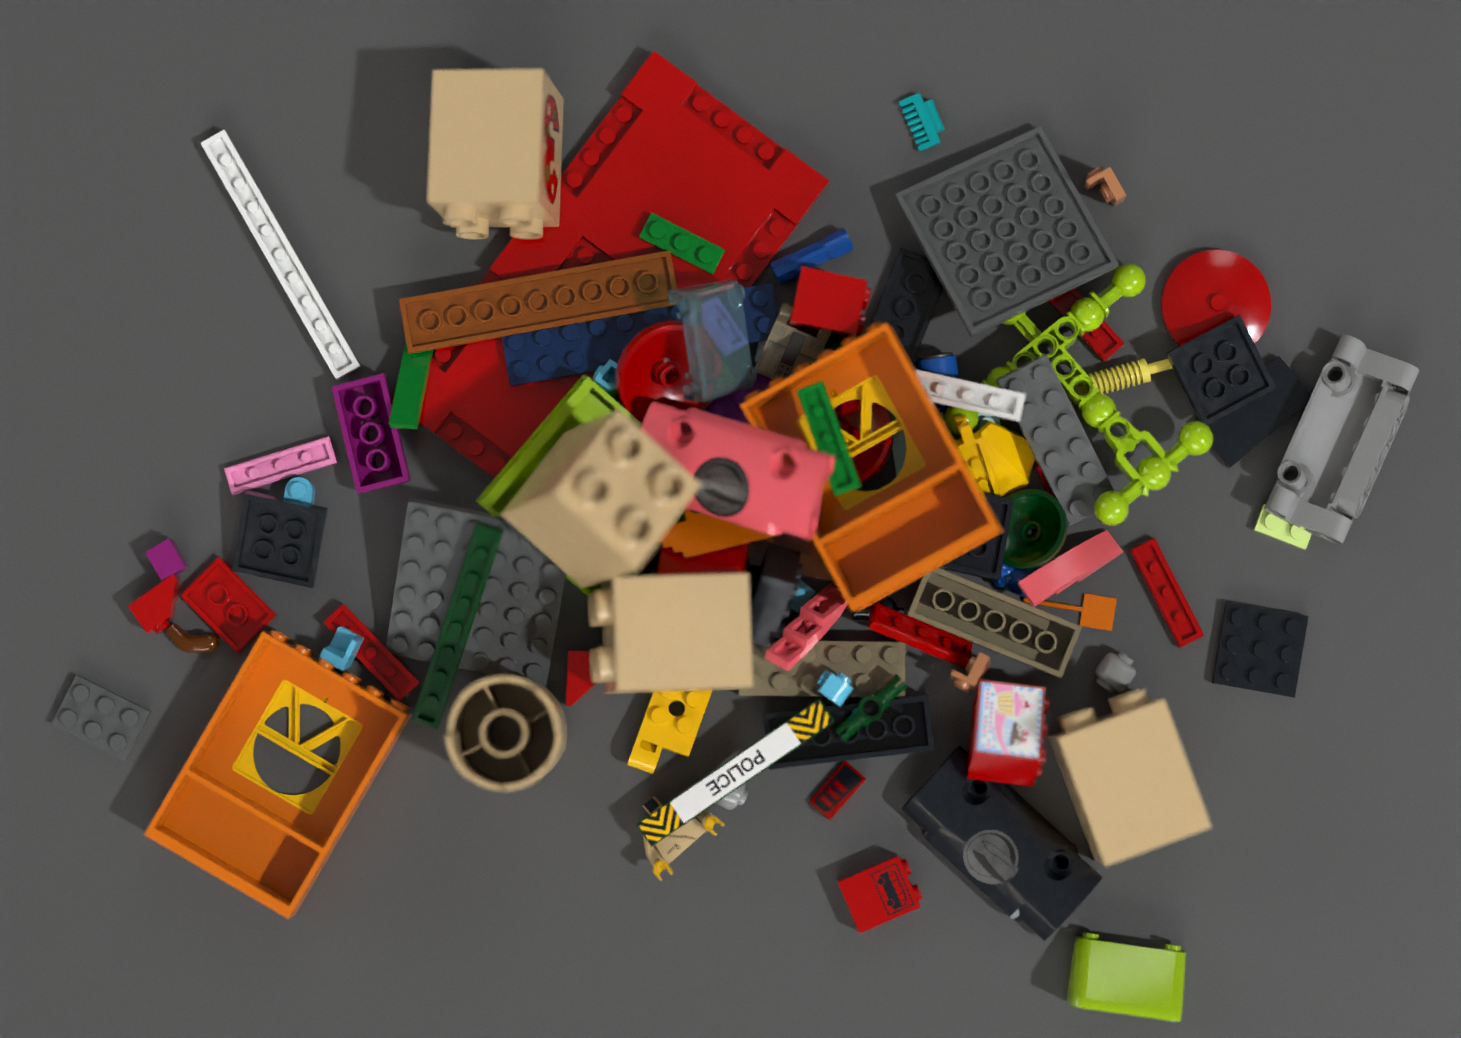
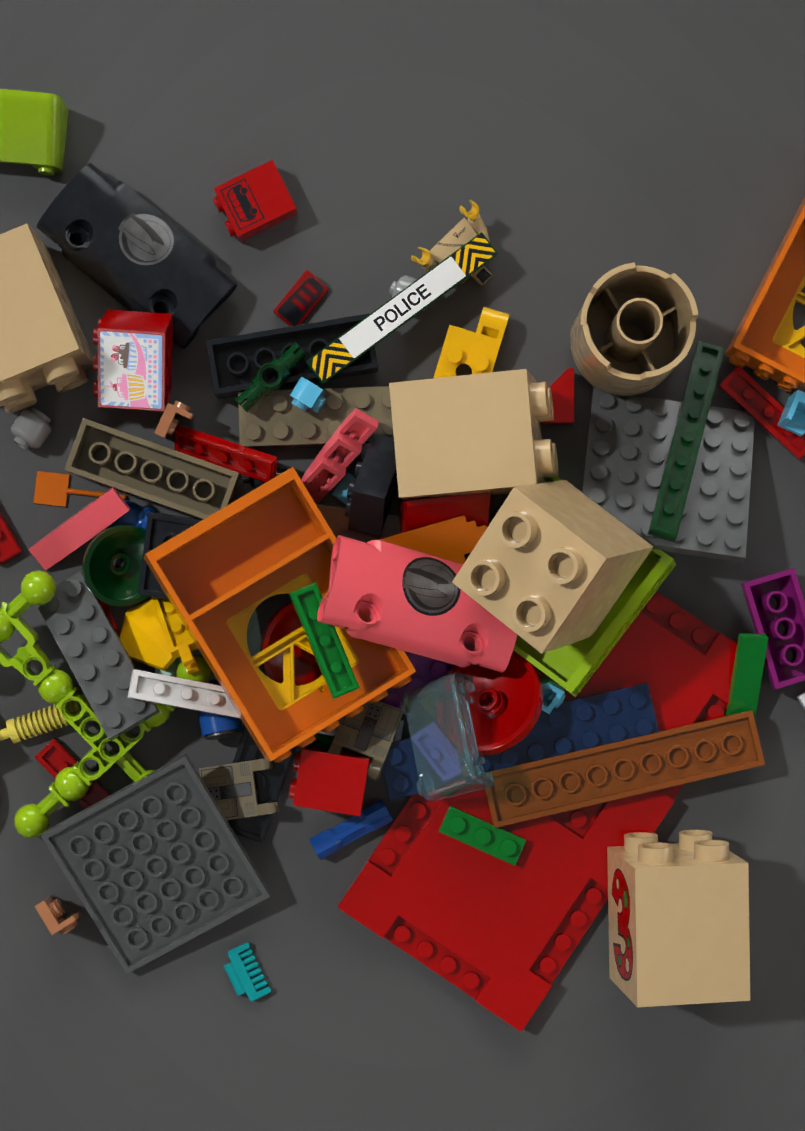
camera: 175 degrees right, 0 degrees up
(924, 302) = (235, 788): none -> dark tan flag

